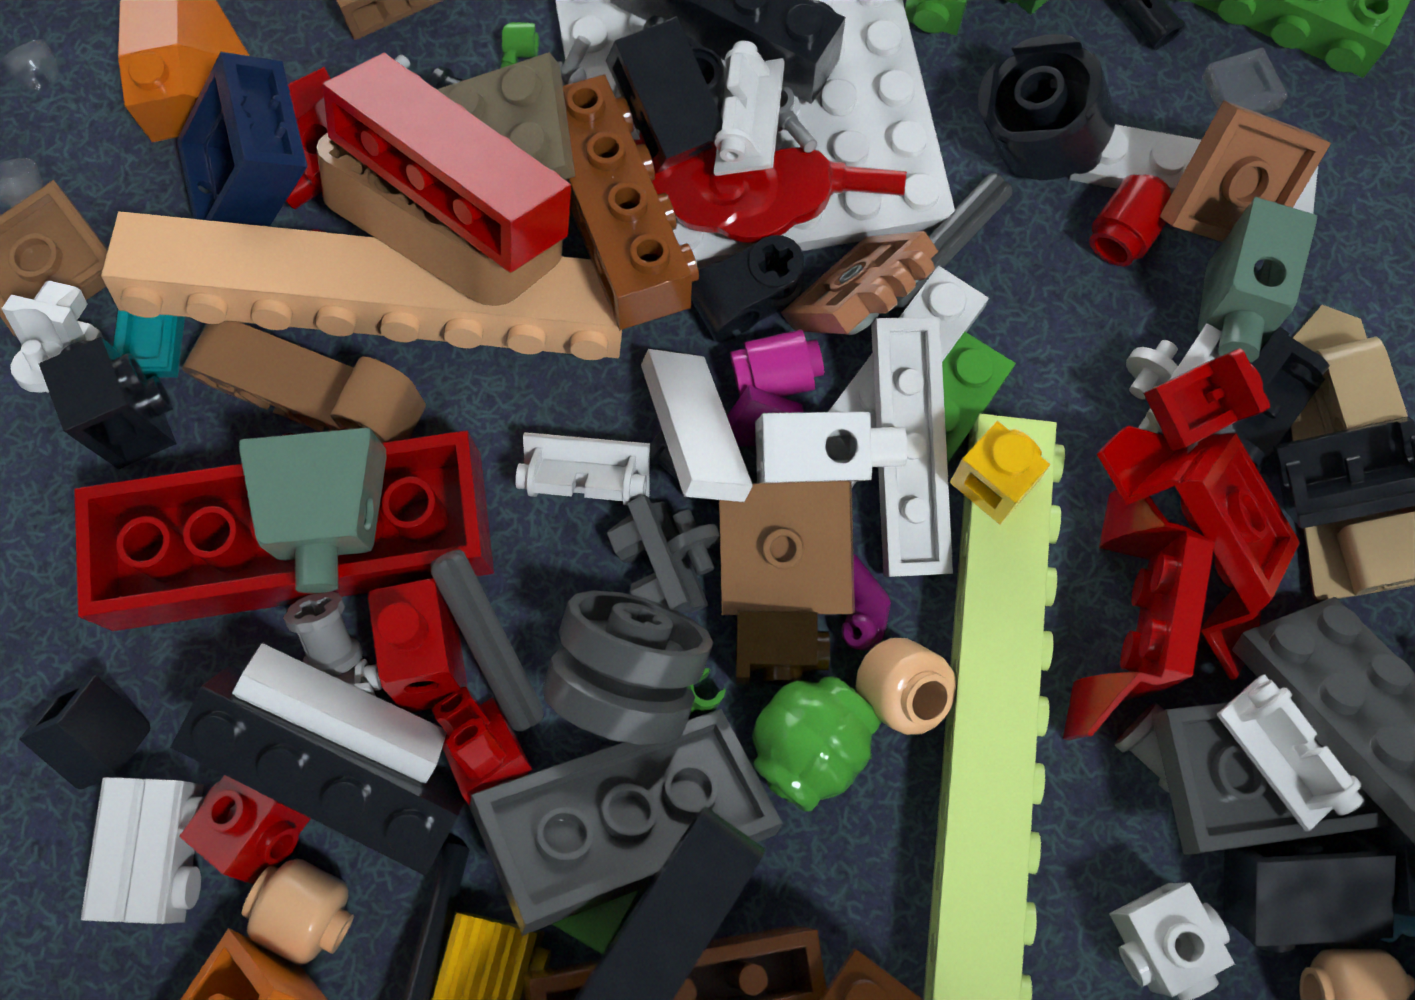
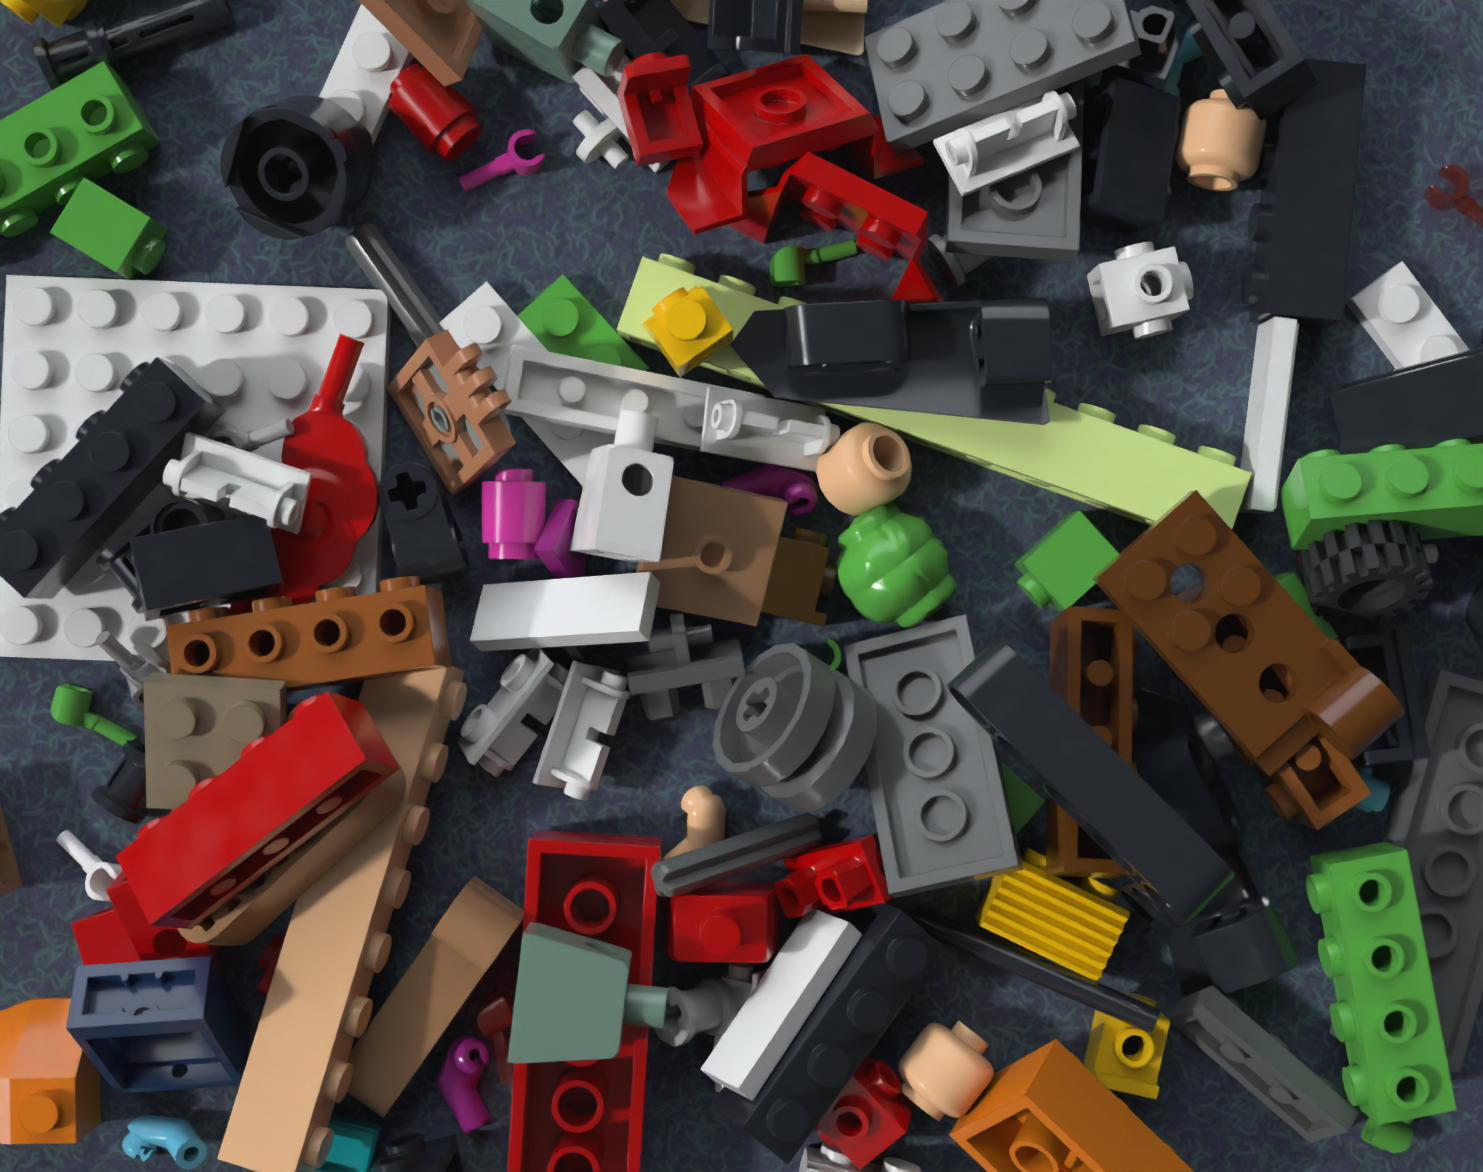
camera: 80 degrees left, 15 degrees up
(146, 188) = (171, 1133): none -> medium azure arm
(220, 436) = (459, 1079): none -> magenta arm
(520, 608) = (704, 821): none -> light nougat arm
(568, 397) = (495, 731): none -> white hinge
(861, 918) = (1064, 563): none -> bright green brick
(919, 577) = (765, 429): none -> white hinge
(1034, 701) = (907, 357): none -> black panel
(1092, 574) = (789, 263): none -> bright green hand
(1105, 296) = (505, 163): none -> dark pink hand

